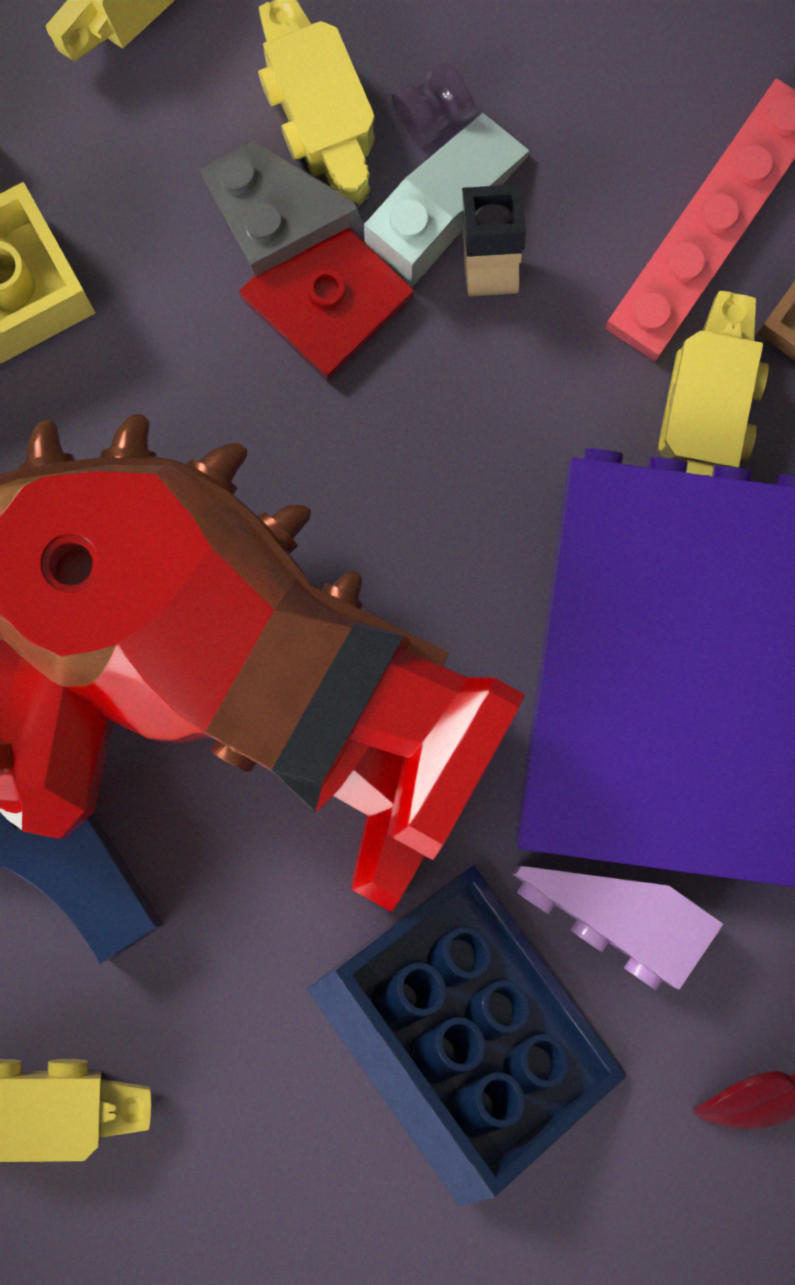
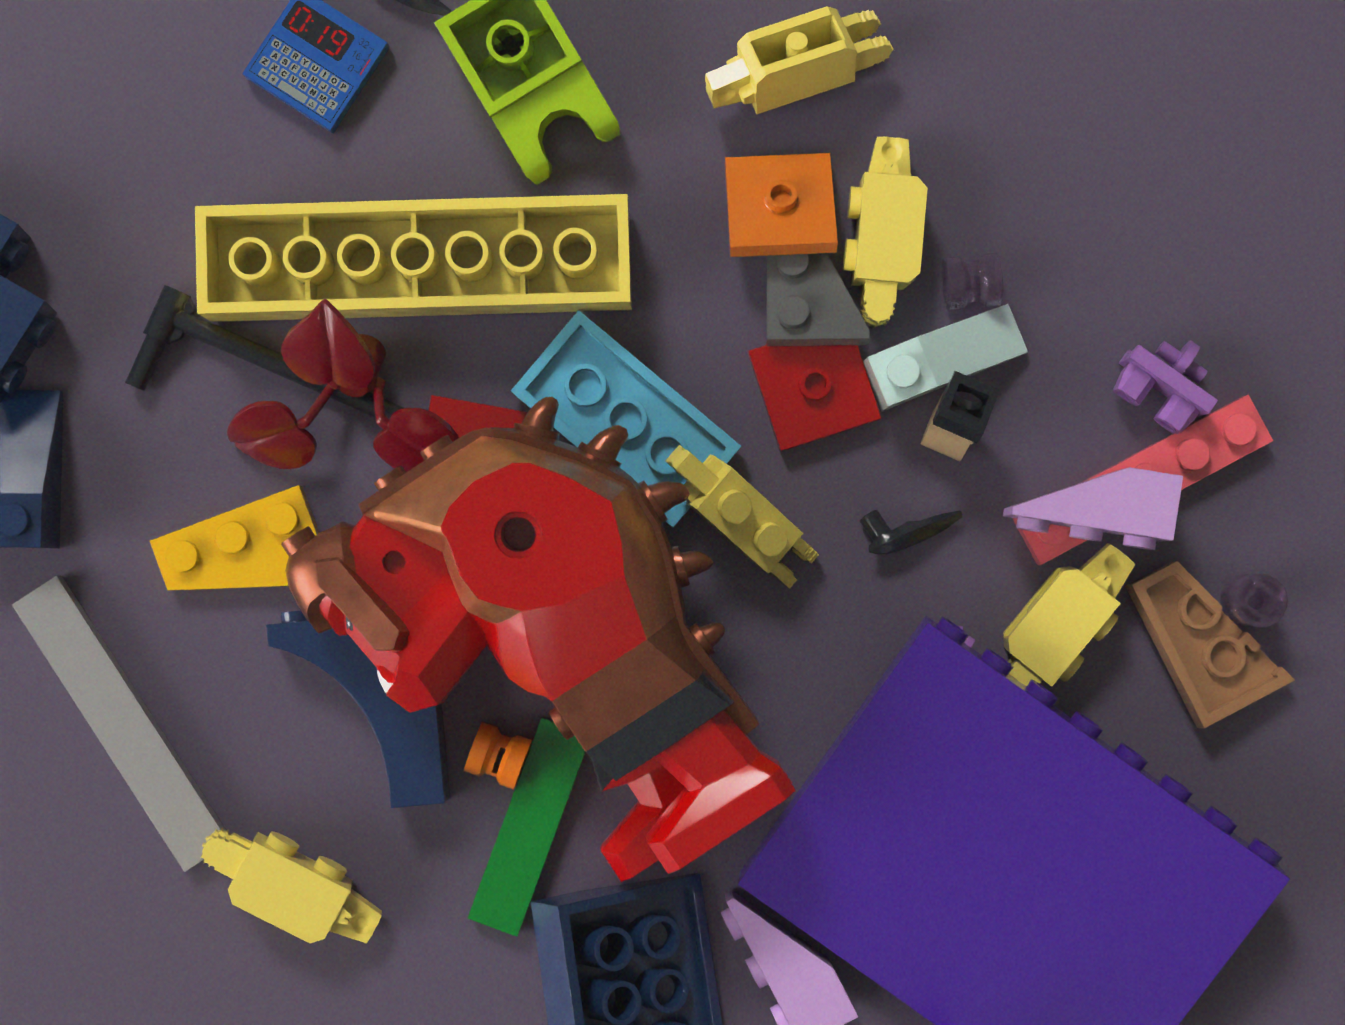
camera: 30 degrees right, 5 degrees up
(175, 849) = (486, 751): none -> orange wheel
(187, 410) = (608, 386): none -> medium azure plate
(195, 125) = (780, 205): none -> orange plate
(264, 910) = (527, 830): none -> green tile
(315, 455) = (740, 513): none -> light yellow hinge
(502, 398) = (906, 535): none -> black bar
(690, 100) = (1184, 398): none -> medium lavender hips
(708, 241) = (1123, 502): none -> lavender slope

